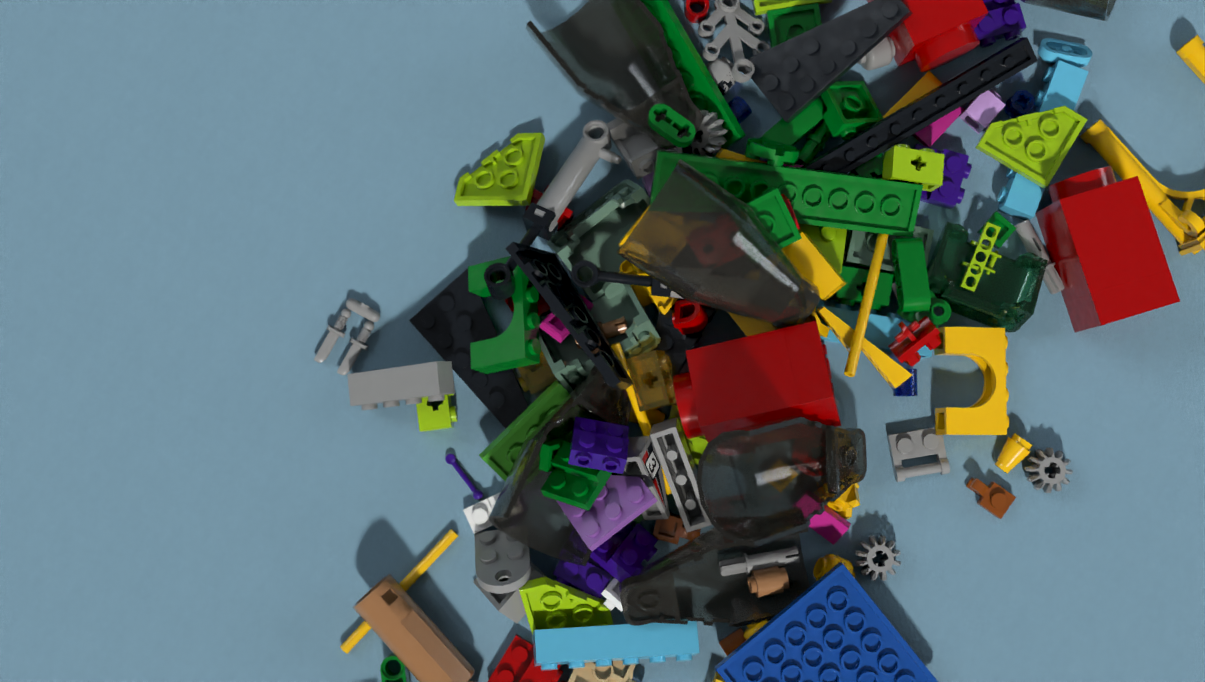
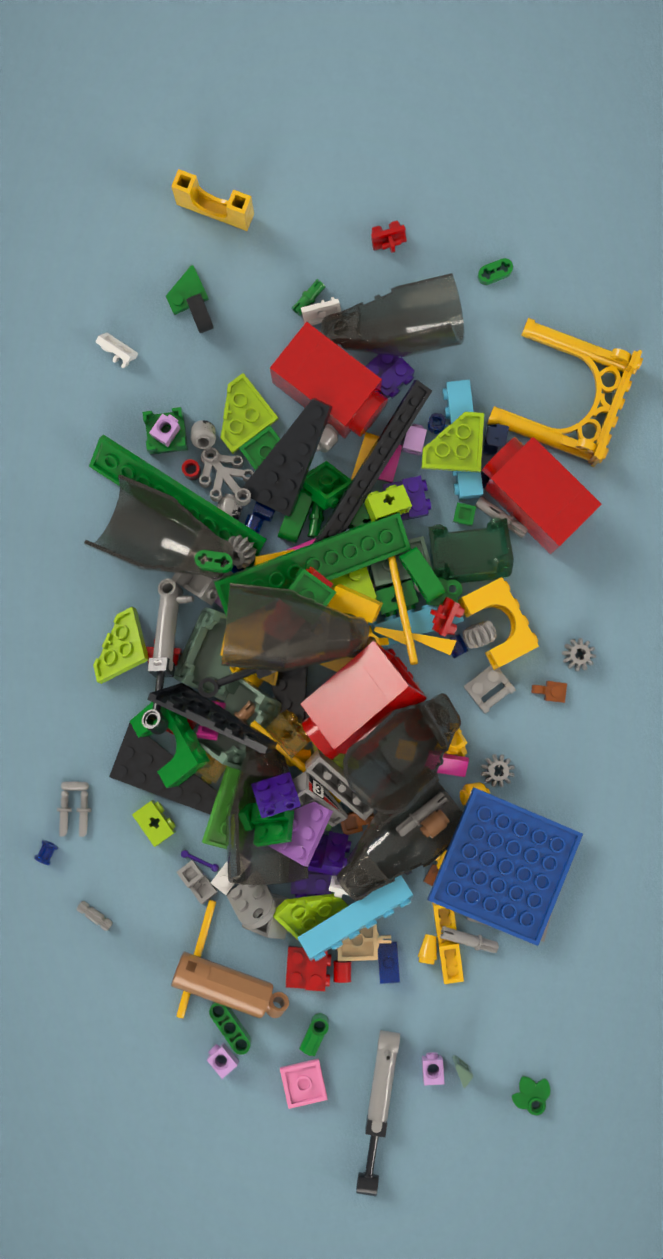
camera: 25 degrees left, 0 degrees up
(288, 370) = (46, 852): none -> clear blue bush
(305, 475) = (94, 915): none -> light grey axle
(400, 384) = (125, 822): light grey brick -> none
(448, 500) = (197, 882): none -> light grey slope
(689, 317) = (292, 680): red plate -> none
(757, 101) = (263, 512): none -> clear blue beam
(775, 151) = (291, 542): green plate -> none
(941, 383) = (479, 634): none -> light grey gear
(987, 251) = (464, 532): lime piece -> none
(1013, 453) = (550, 655): yellow cone -> none
(1072, 53) = (448, 373): medium azure plate -> none
(1078, 155) = (495, 437): none -> dark blue piece

